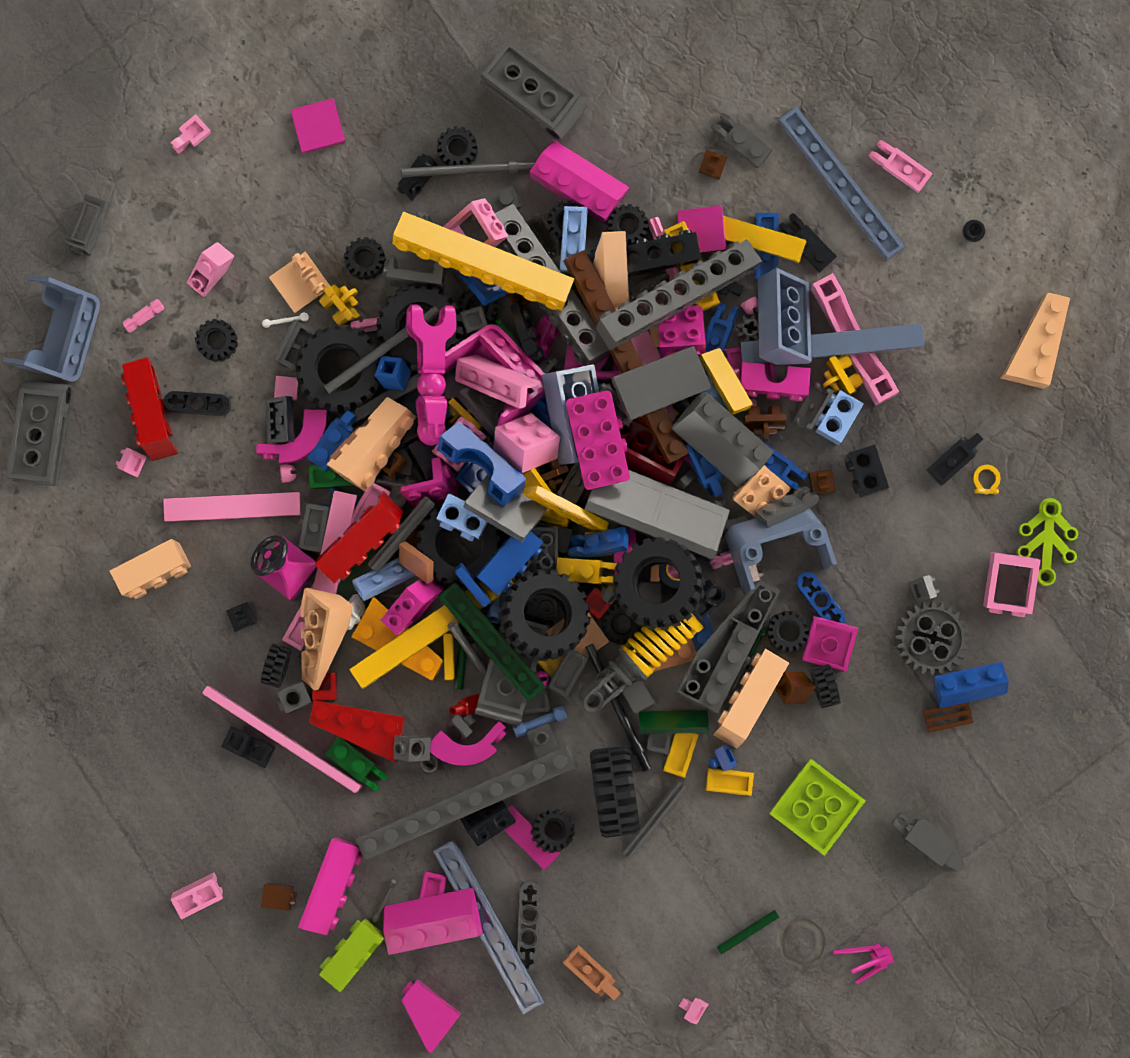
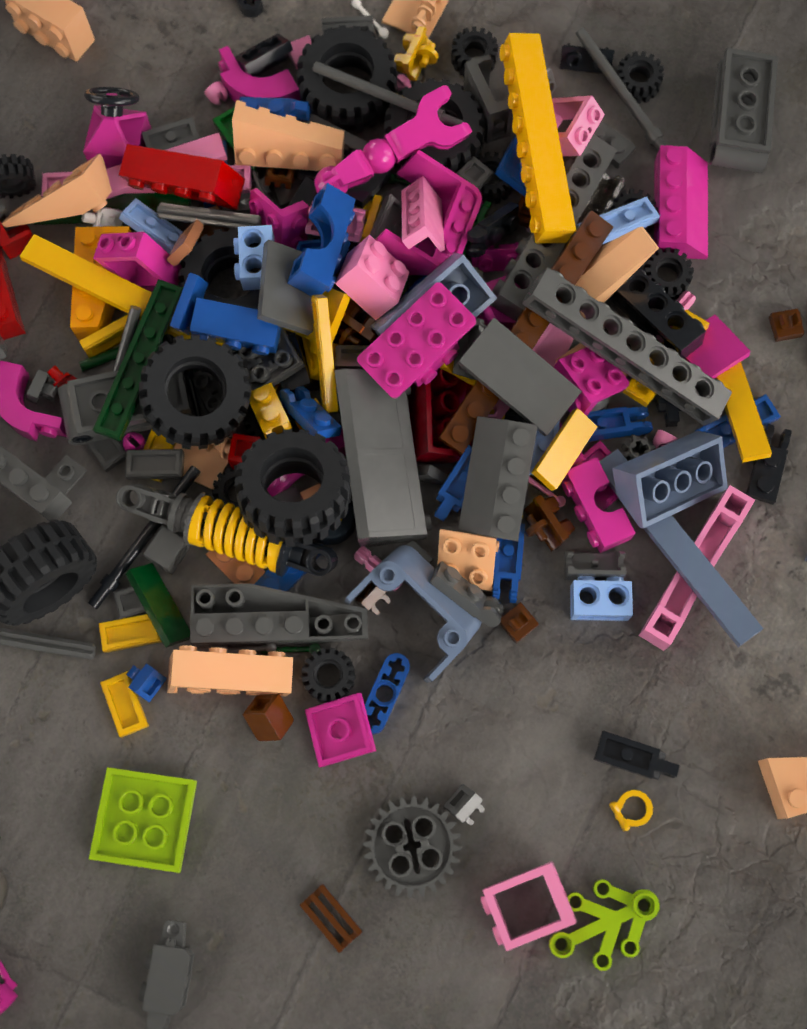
camera: 60 degrees right, 10 degrees down
(232, 507) = (155, 63): bright pink tile -> none
(241, 617) = (48, 127): black tile -> none
(393, 373) = (370, 120): blue brick -> none
(558, 714) = (103, 478): medium blue bar -> none
(825, 686) = (286, 749): black tyre -> none
(837, 366) = (656, 568): yellow hips -> none
(873, 470) = (564, 668): black brick -> none
(971, 685) = (381, 924): blue brick -> none

